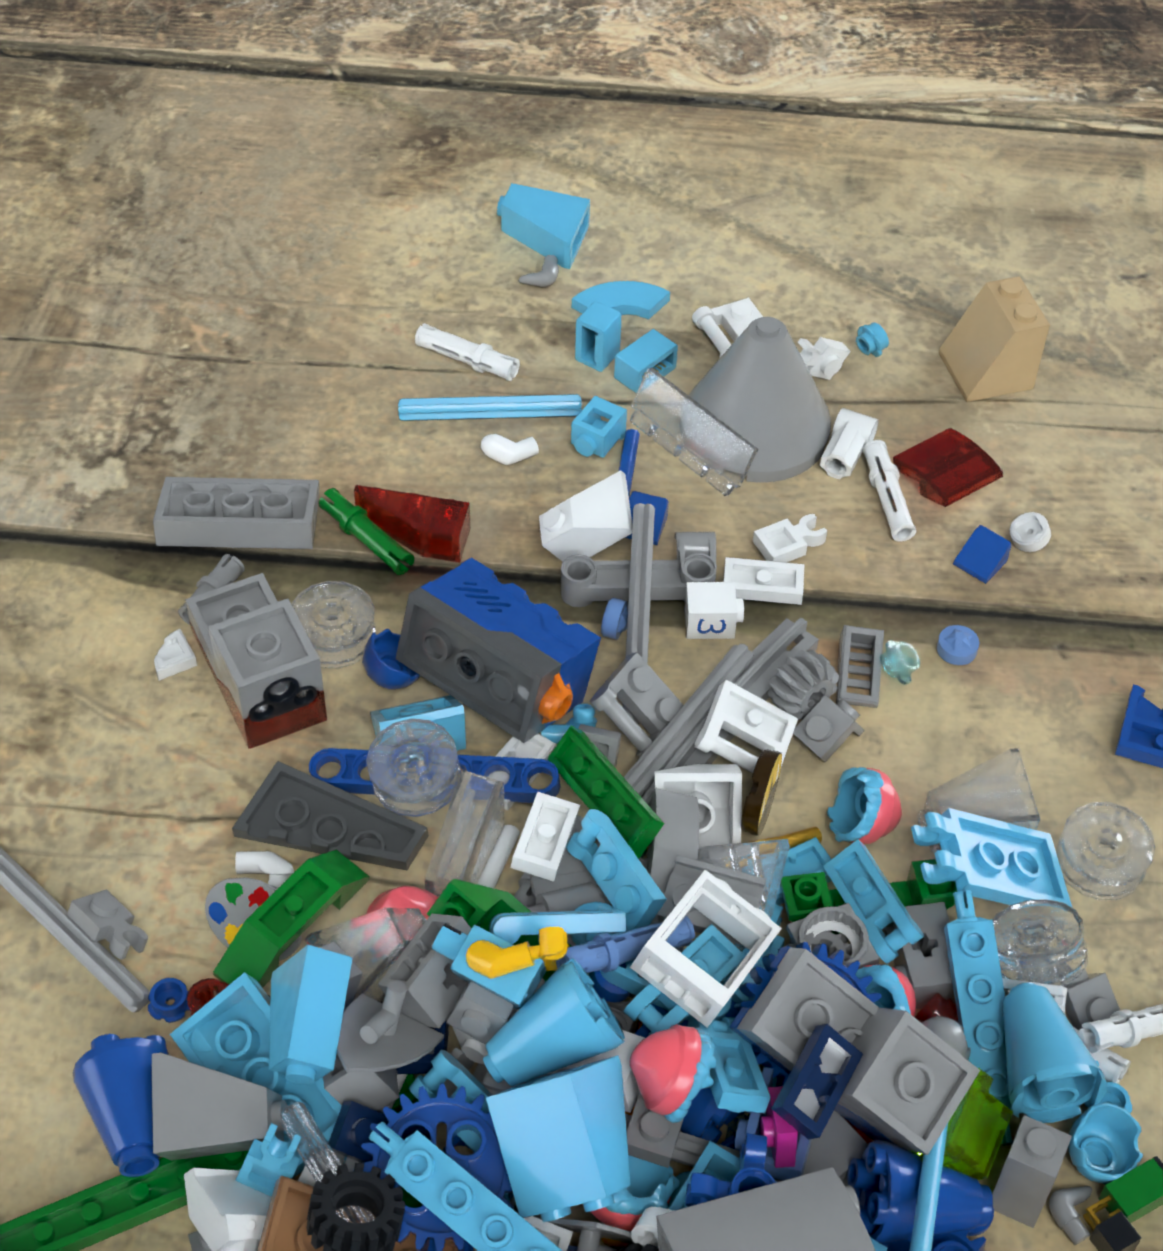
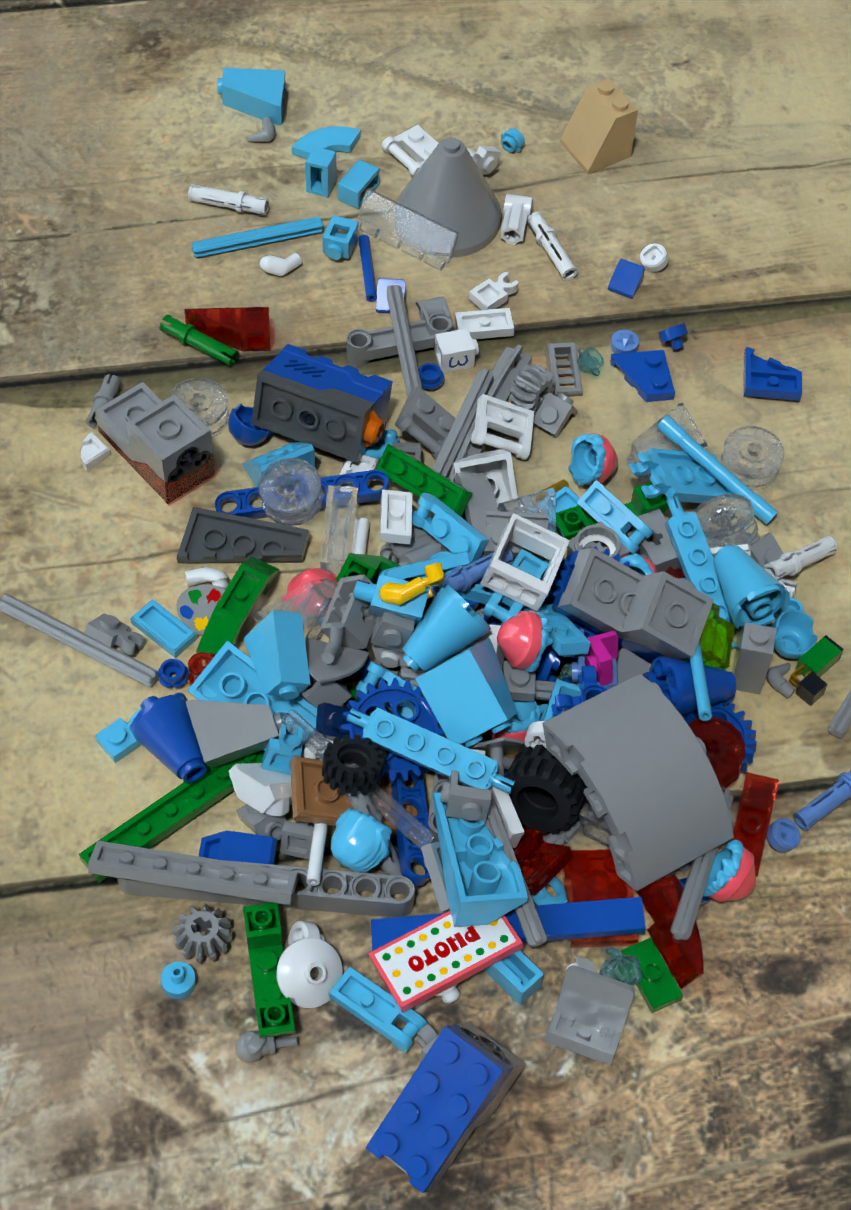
camera: 15 degrees left, 5 degrees up
(55, 1084) = (118, 739): none -> medium azure plate
(182, 929) = (163, 628): none -> medium azure tile
(237, 513) = (103, 344): light grey slope -> none
(588, 519) = (355, 303): white slope -> none
(614, 618) = (392, 367): medium blue tile -> none
(666, 640) = (431, 376): none -> blue plate
(762, 793) = (524, 463): dark brown tile -> none
(817, 1081) = (617, 625): dark blue piece -> none
(948, 467) = (588, 222): clear red slope -> none
(979, 694) = (647, 373): none -> blue wing
(1000, 800) = (680, 437): none -> medium azure piece
(1031, 647) = (674, 335): none -> blue tile

